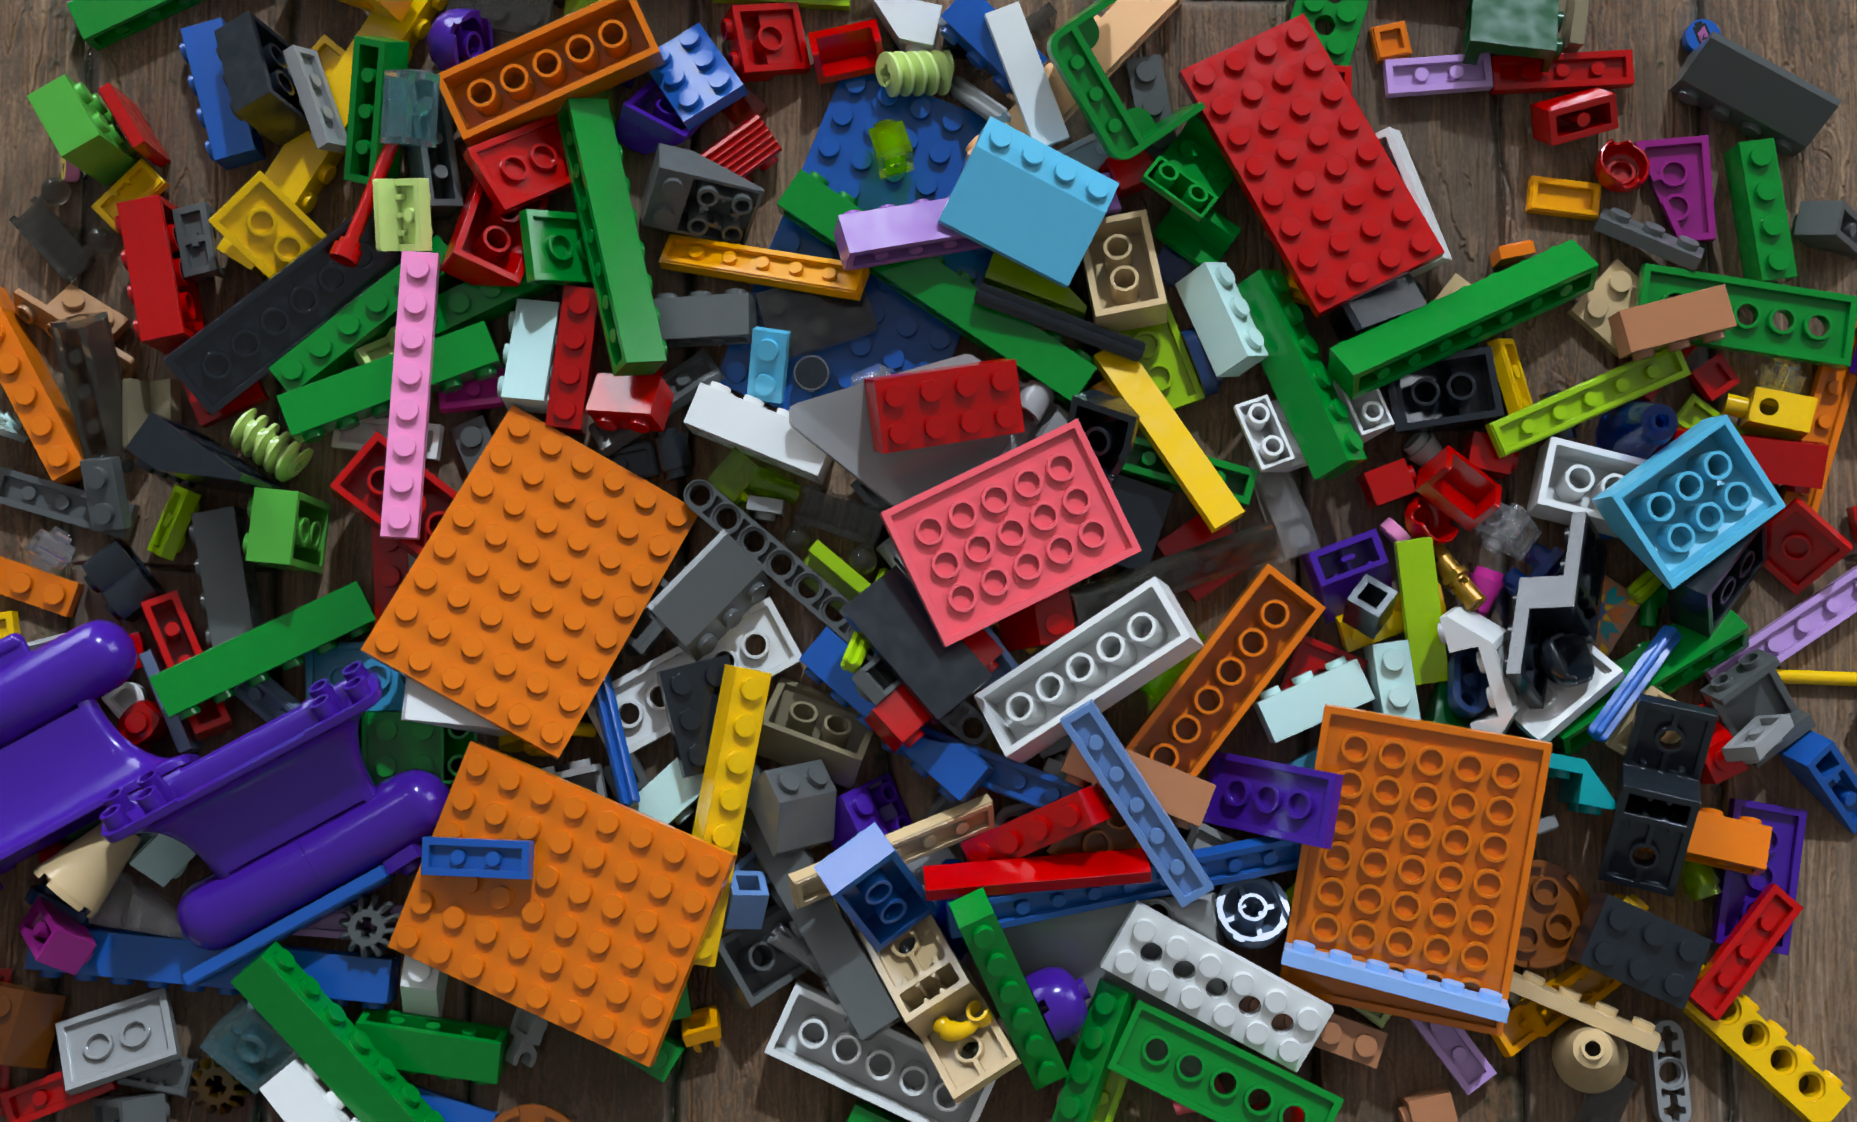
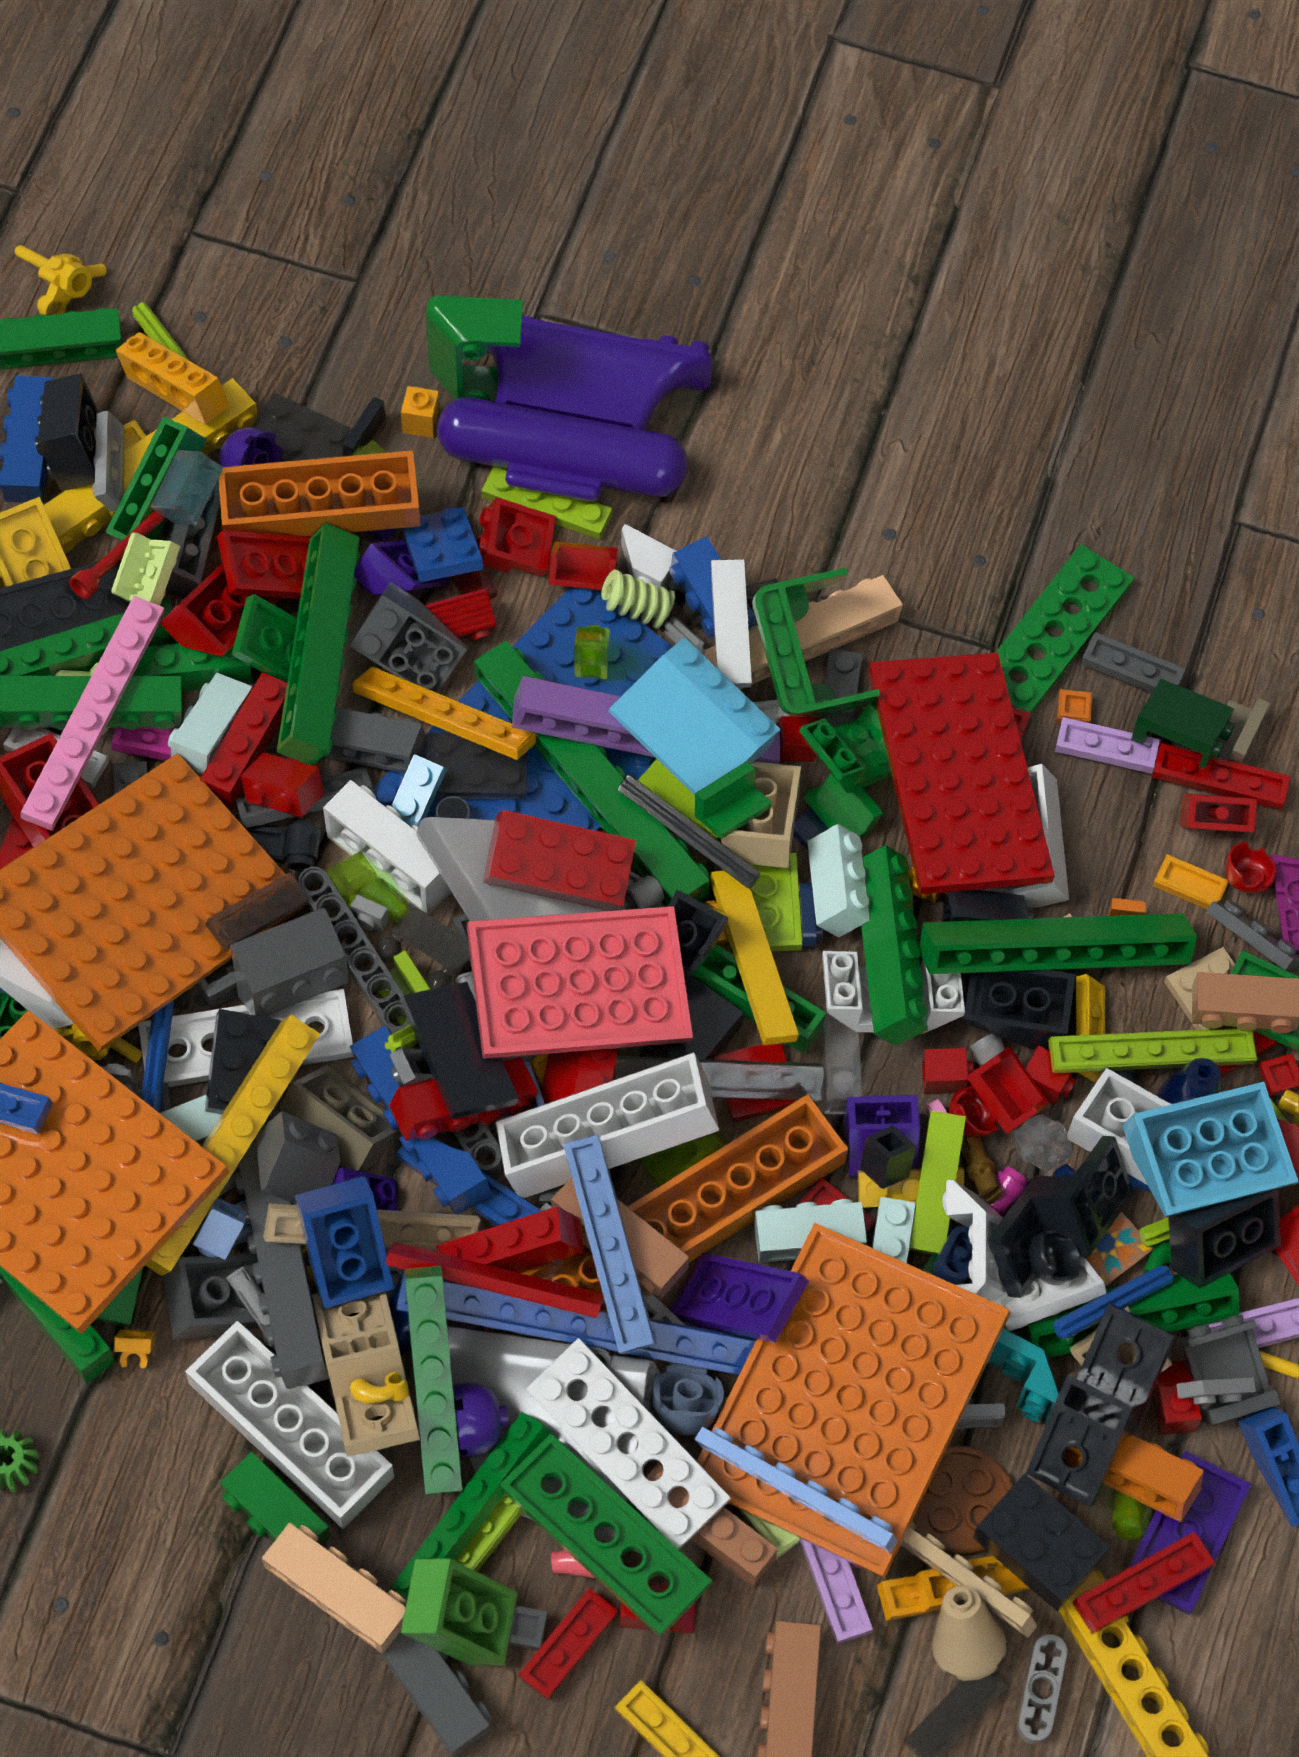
camera: 10 degrees right, 20 degrees down
(657, 552) = (257, 911): none -> clear smoke plate
(1094, 279) = (730, 801): none -> green panel

